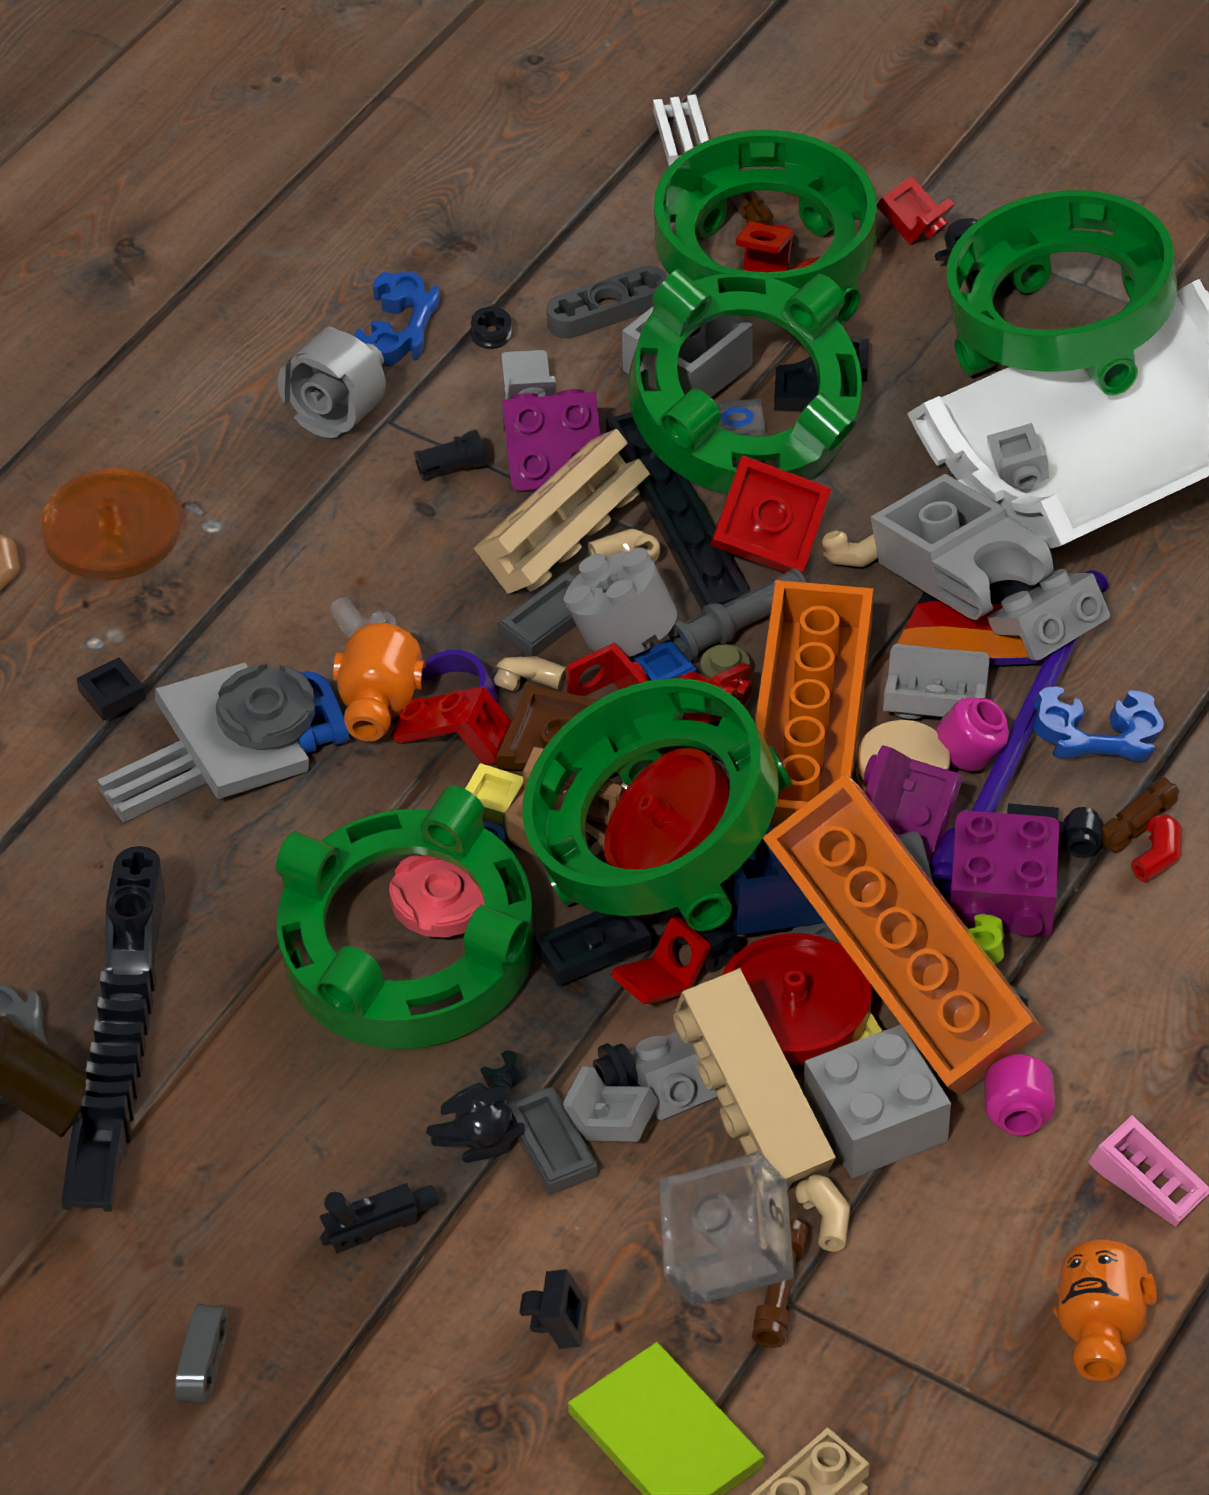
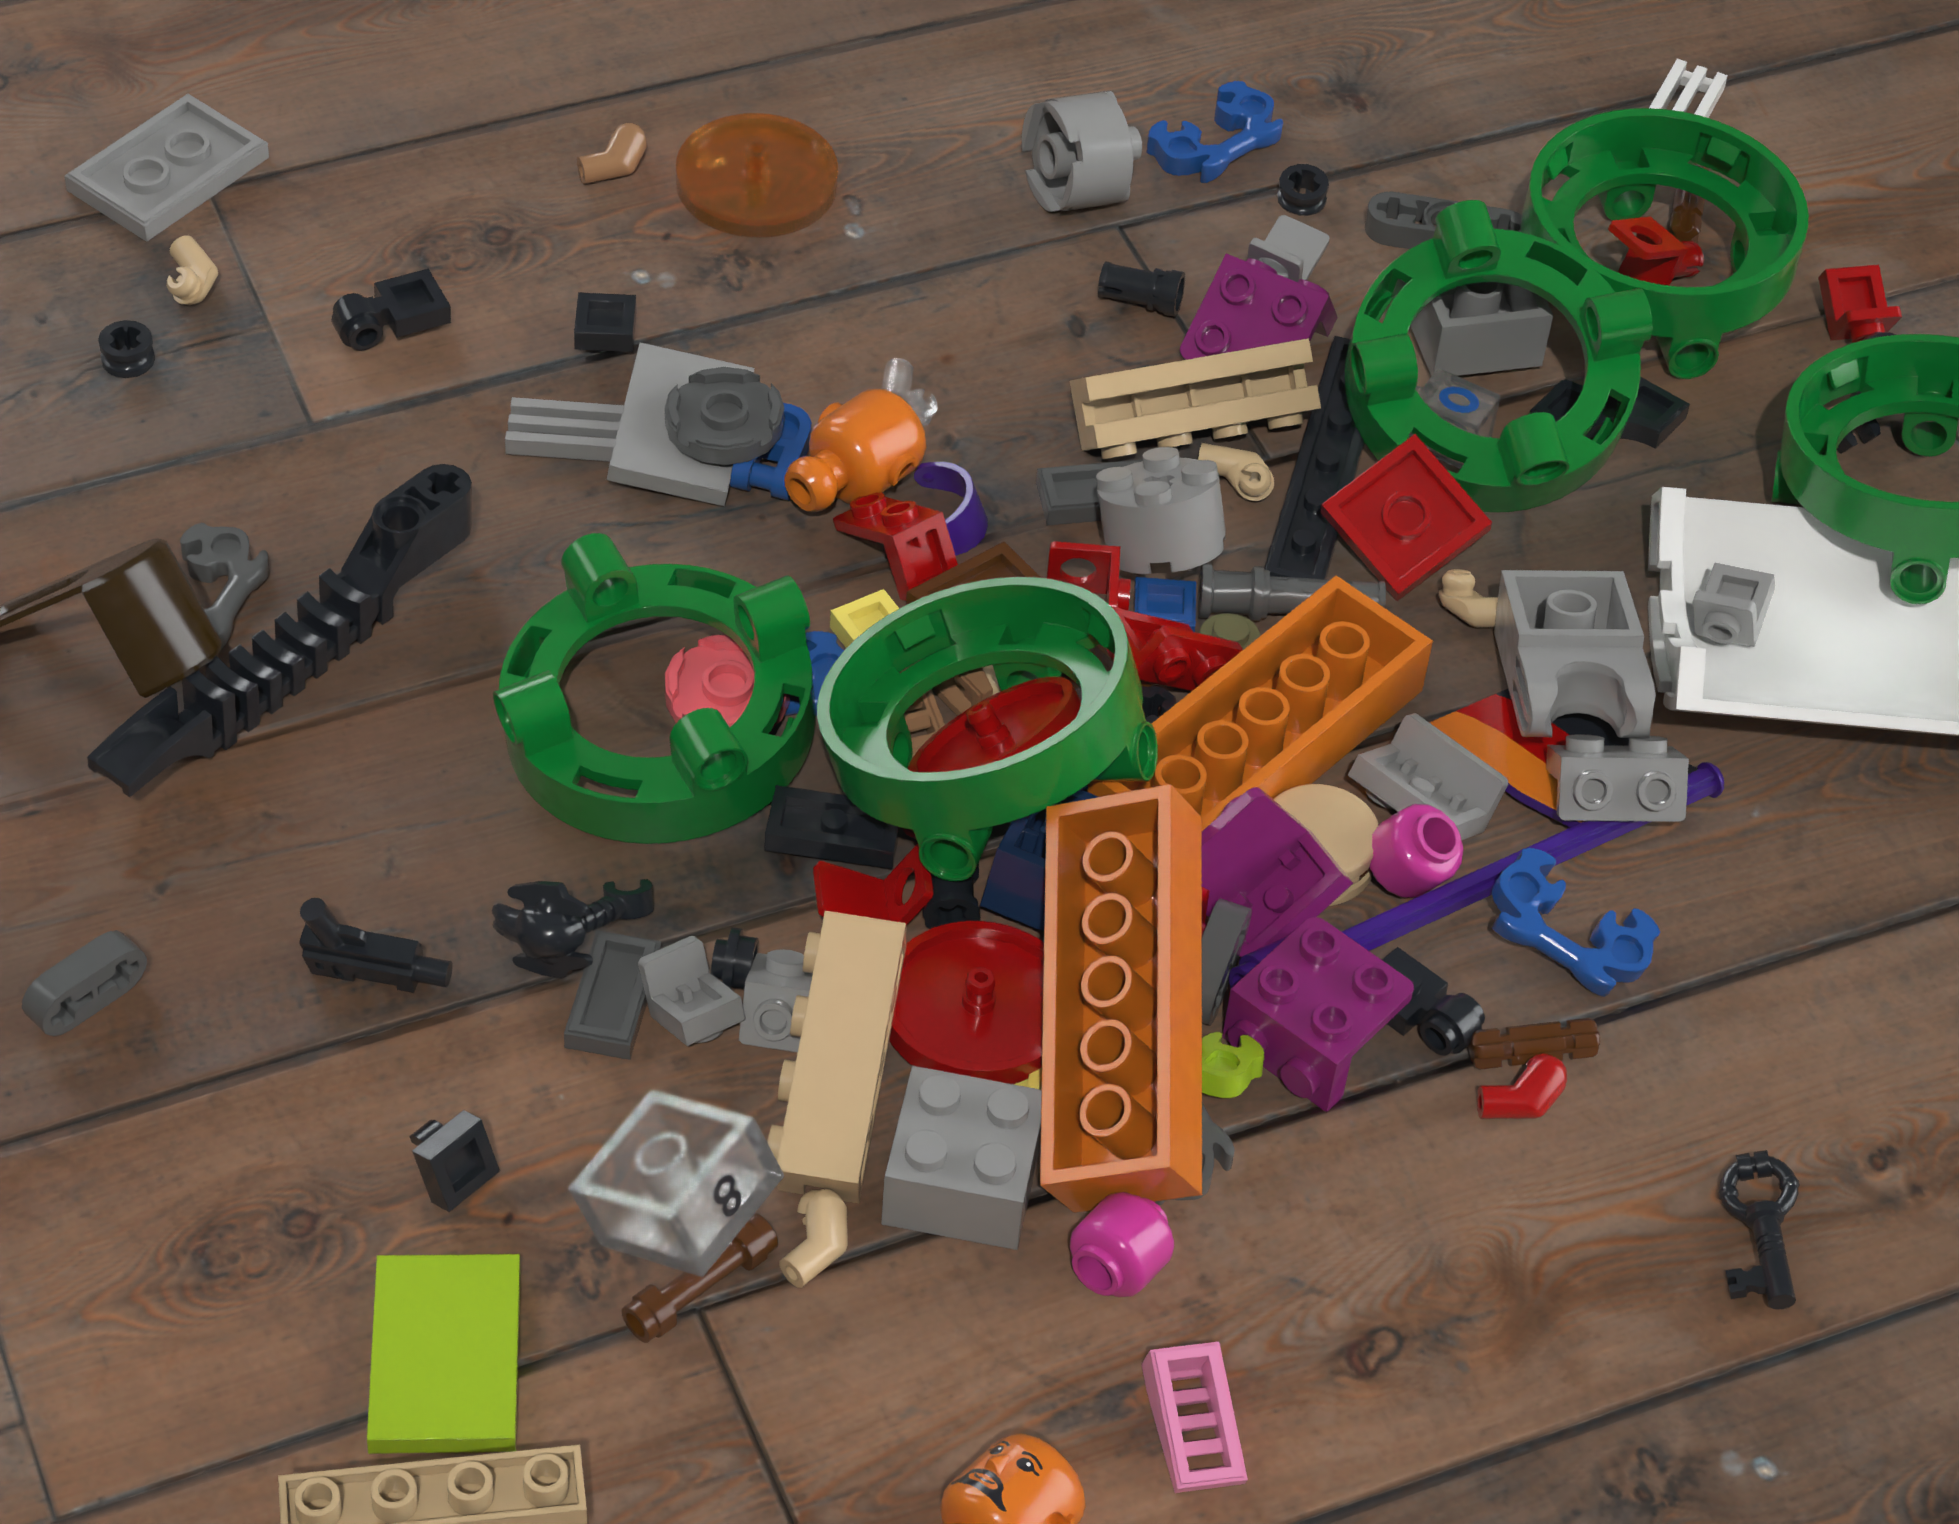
camera: 30 degrees right, 0 degrees up
(531, 668) = (1027, 529): tan arm -> none

